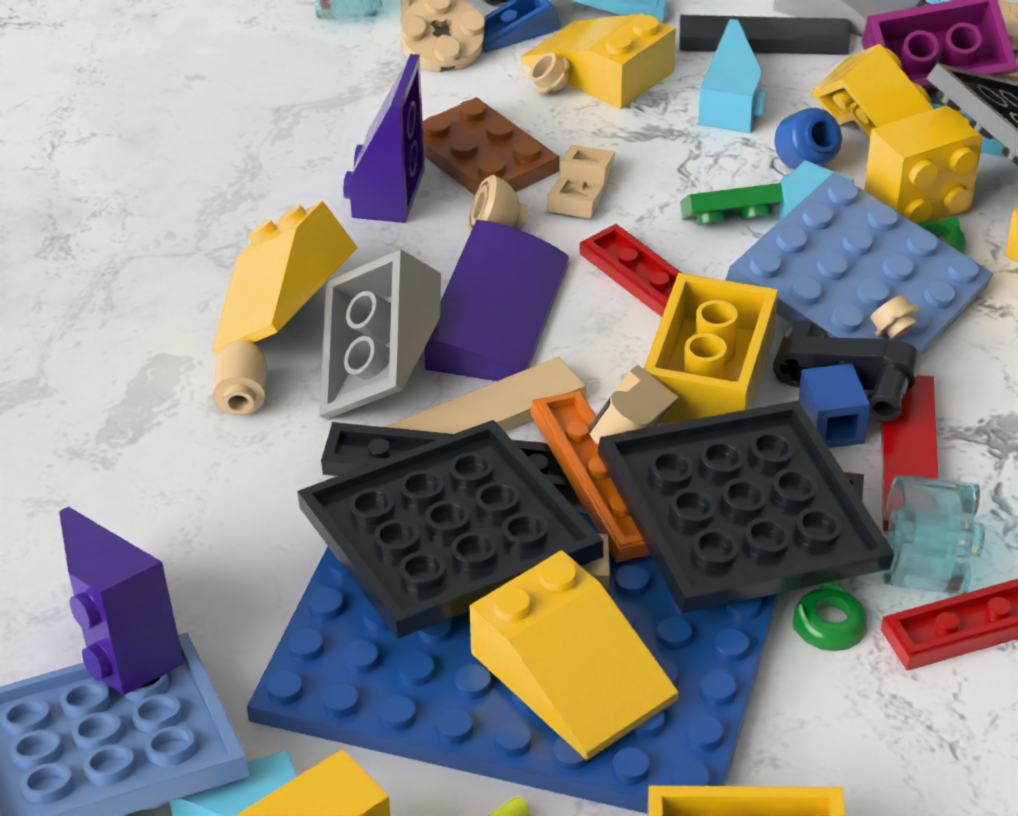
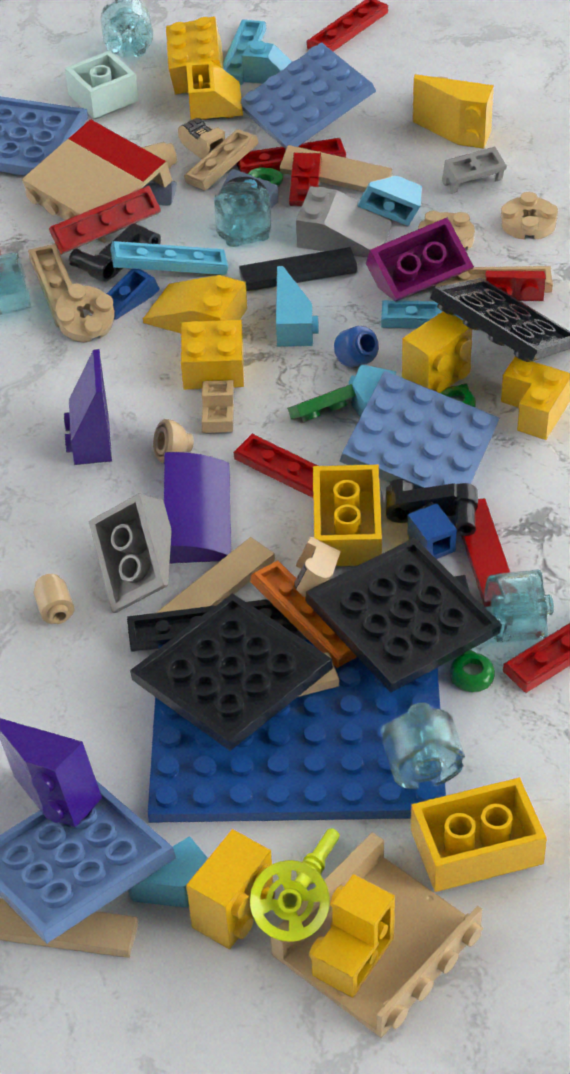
camera: 15 degrees left, 5 degrees up
(281, 272) = (54, 523): yellow slope -> none
(480, 142) = (146, 395): dark orange plate -> none
(549, 73) = (168, 329): tan plate -> none
(569, 654) = (331, 734): yellow slope -> none
(597, 109) = (212, 352): none -> yellow brick
(698, 702) = (423, 747): none -> clear light blue brick
(871, 90) = (389, 305): yellow brick -> none
(895, 317) = (453, 466): tan plate -> none

